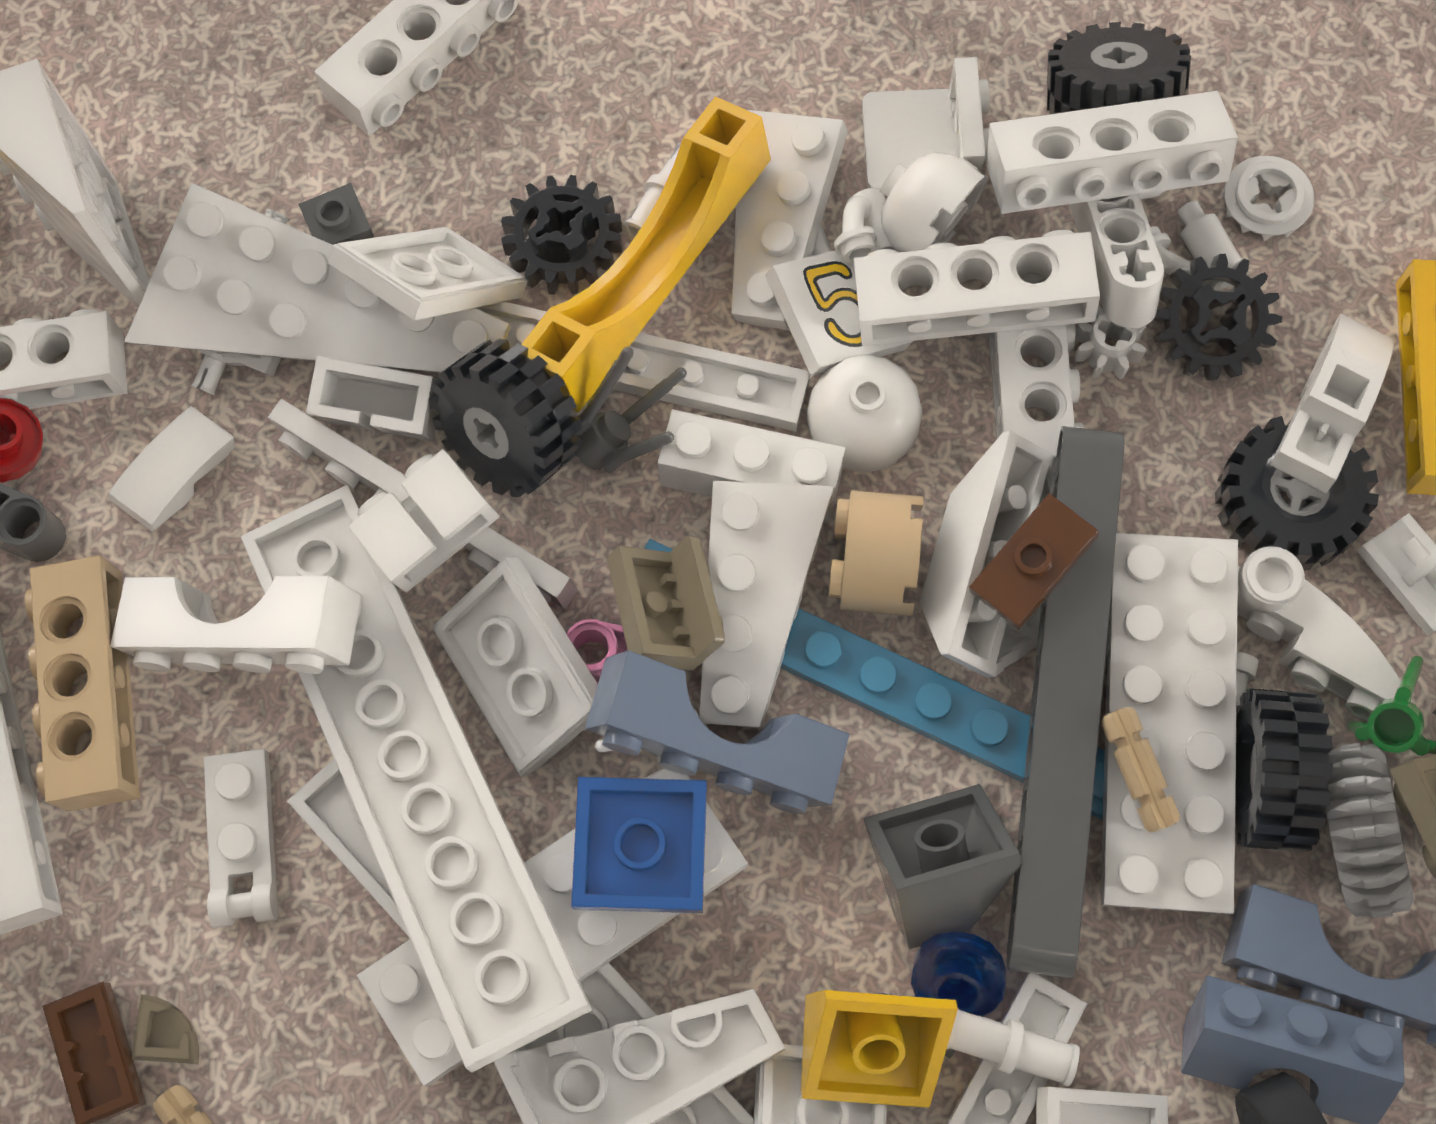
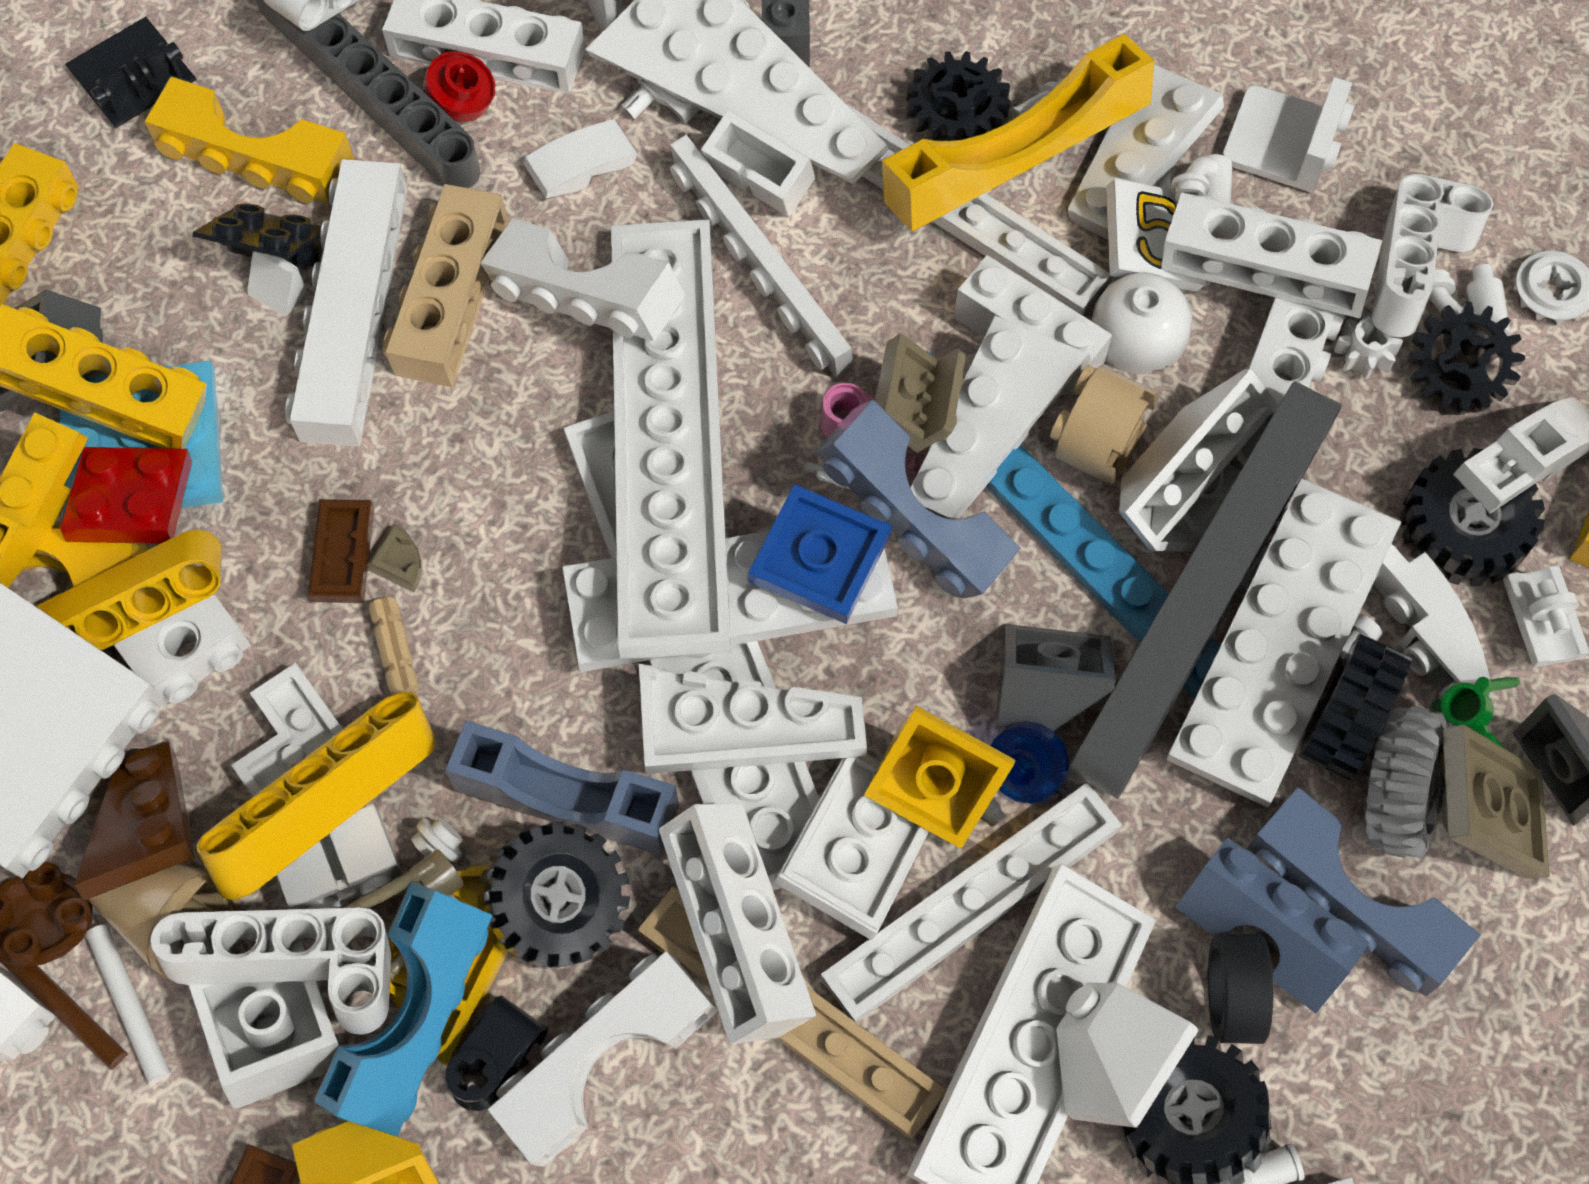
camera: 20 degrees right, 5 degrees down
(240, 836) = (516, 442): white plate -> none
(423, 520) = (757, 259): white piece -> none
(427, 272) = (840, 82): white tile -> none
(505, 417) = (853, 210): black wheel -> none
(518, 665) = (782, 398): white tile -> none
(607, 434) = (923, 260): dark grey plant -> none
(928, 200) = (1267, 176): white cylinder -> none
(1014, 1047) = (1044, 823): white pin -> none
(1034, 561) = (1224, 467): reddish brown plate -> none
(1110, 152) = (1429, 191): white brick -> none
(1115, 67) = (1464, 146): black wheel -> none
(1140, 769) = (1241, 657): tan axle -> none
(1271, 578) = (1416, 565): white tile -> none

